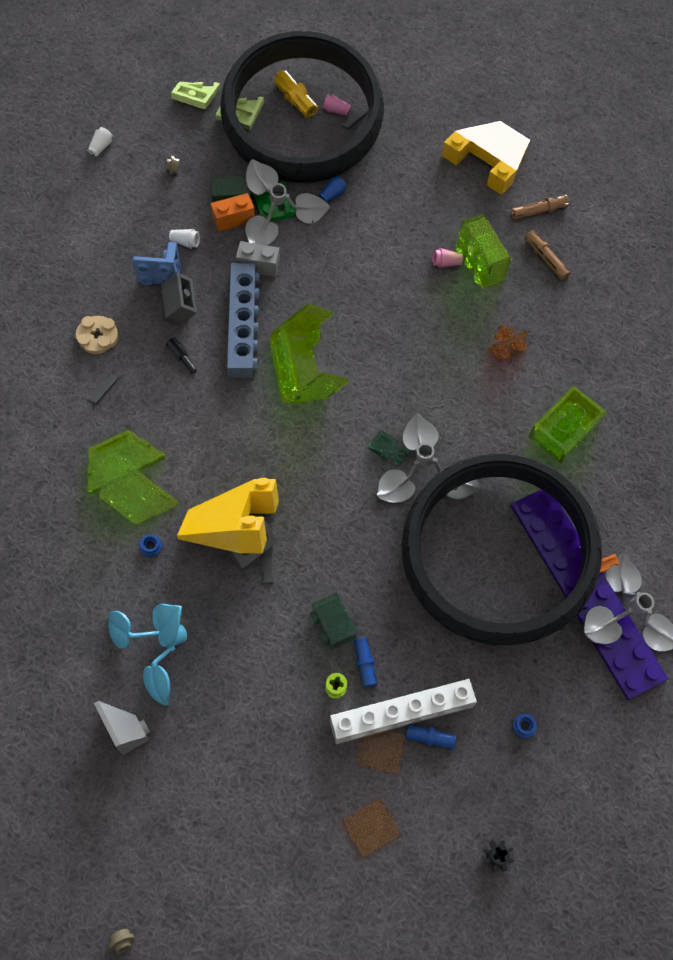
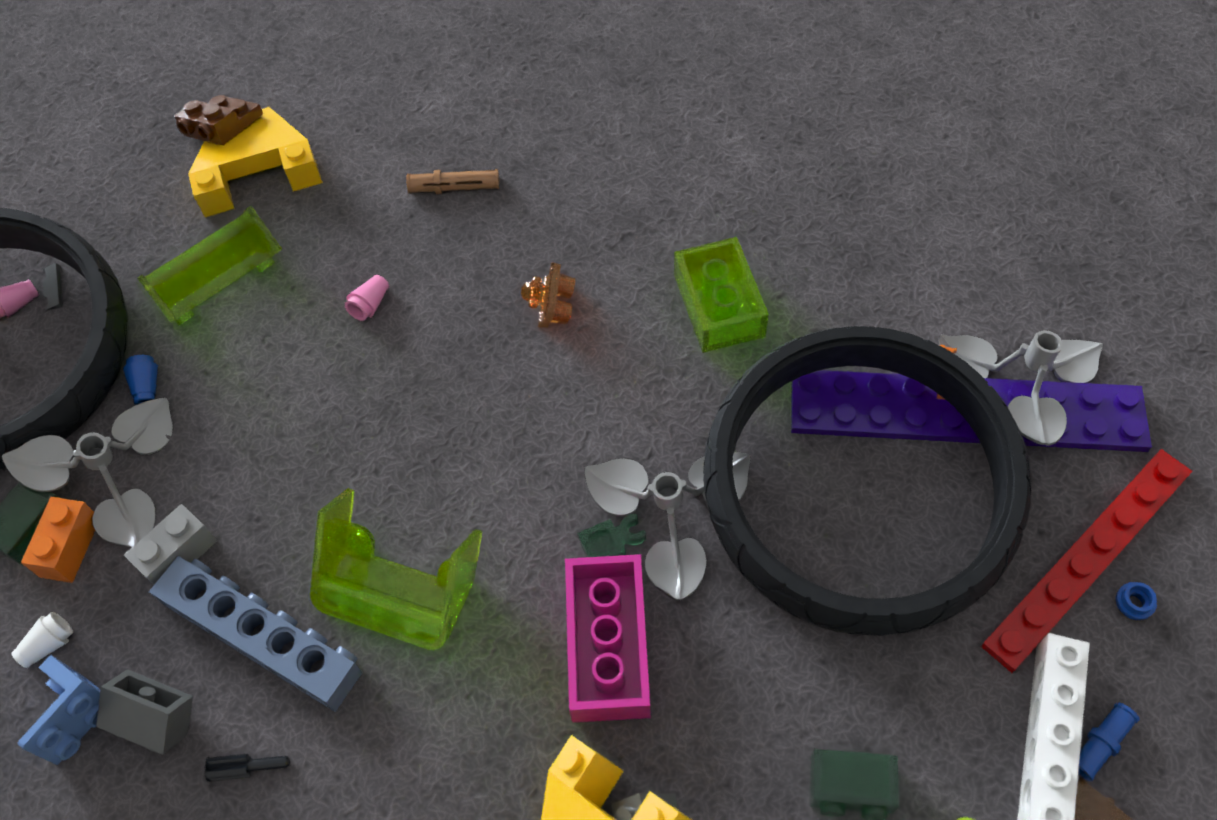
camera: 50 degrees left, 5 degrees down
(263, 205) = (89, 484): green plate -> none
(334, 471) = (606, 639): none -> dark pink brick
(365, 662) = (942, 772): blue pin -> none
(408, 176) = (210, 267): none -> clear neon green windscreen
(483, 251) = (395, 244): clear neon green brick -> none
(501, 122) = (216, 120): none -> reddish brown plate
(538, 691) = (1085, 561): none -> red plate
(547, 205) = (381, 140): medium nougat pin -> none

